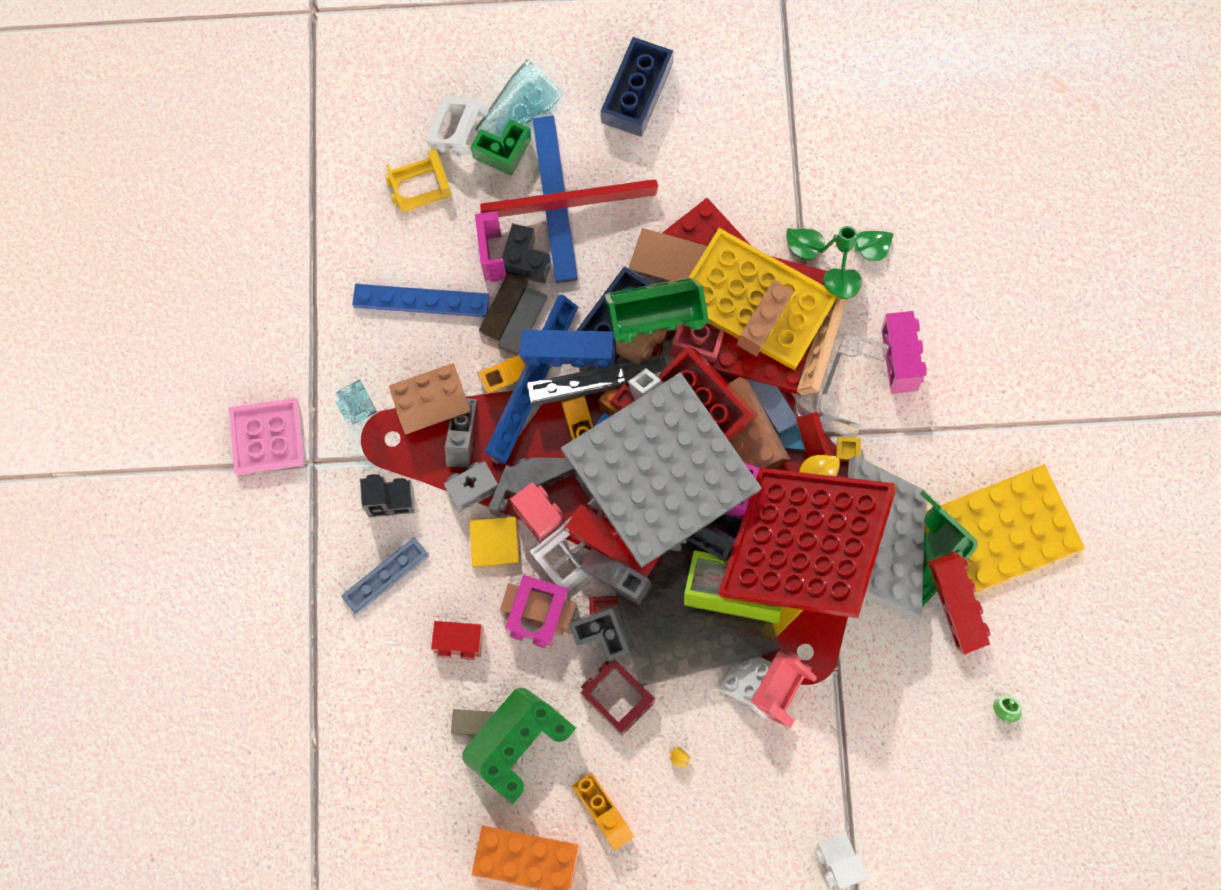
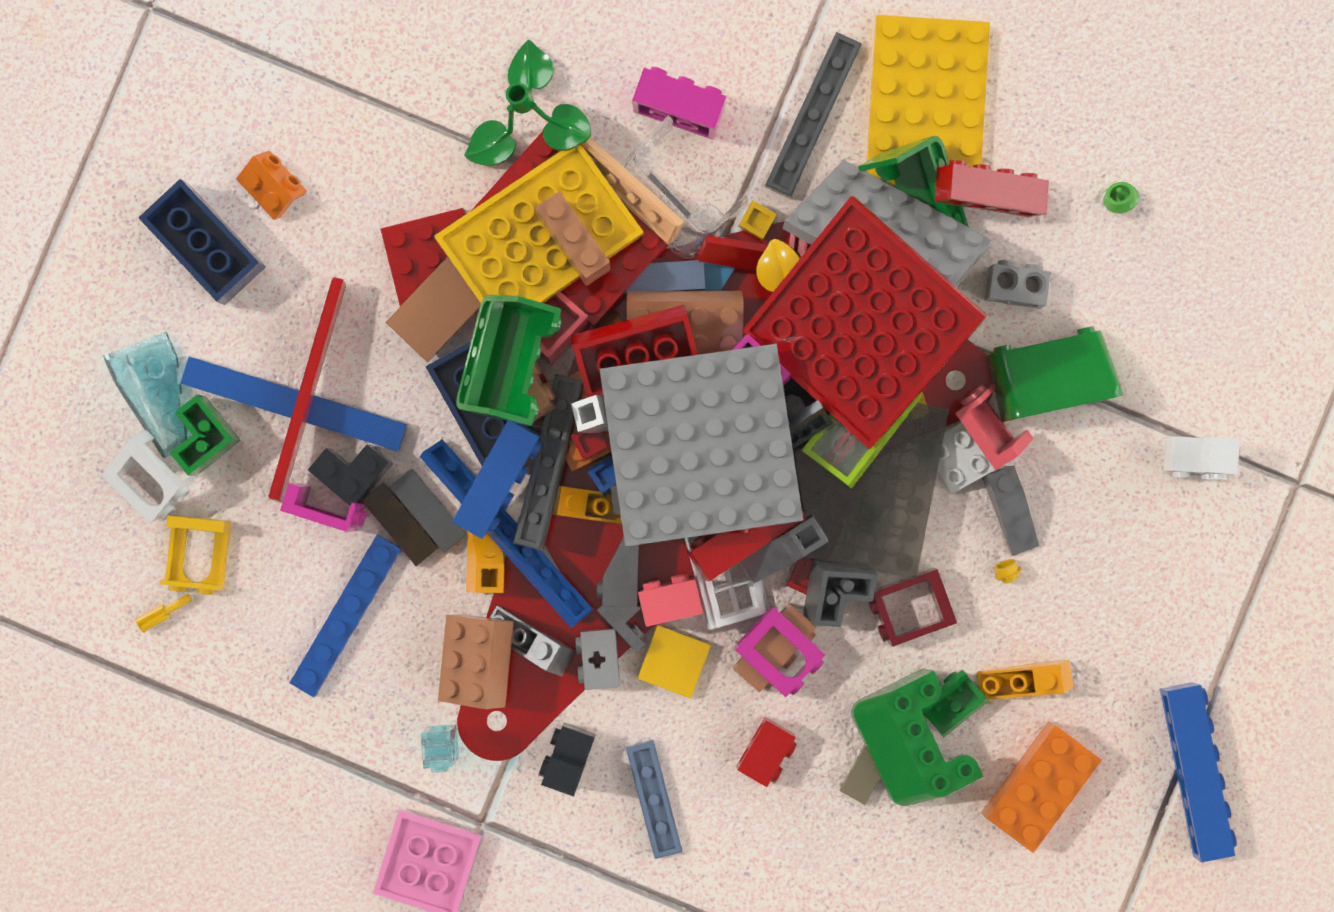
camera: 70 degrees left, 15 degrees up
(365, 178) = (160, 613): none -> yellow axle
(559, 761) = (956, 704): none -> green bracket
(701, 113) = (270, 184): none -> orange bracket
(728, 737) = (1011, 509): none -> flat silver slope
(846, 718) = (1053, 375): none -> green windscreen
(893, 662) = (1017, 292): none -> light grey brick
(947, 454) = (813, 115): none -> dark grey tile

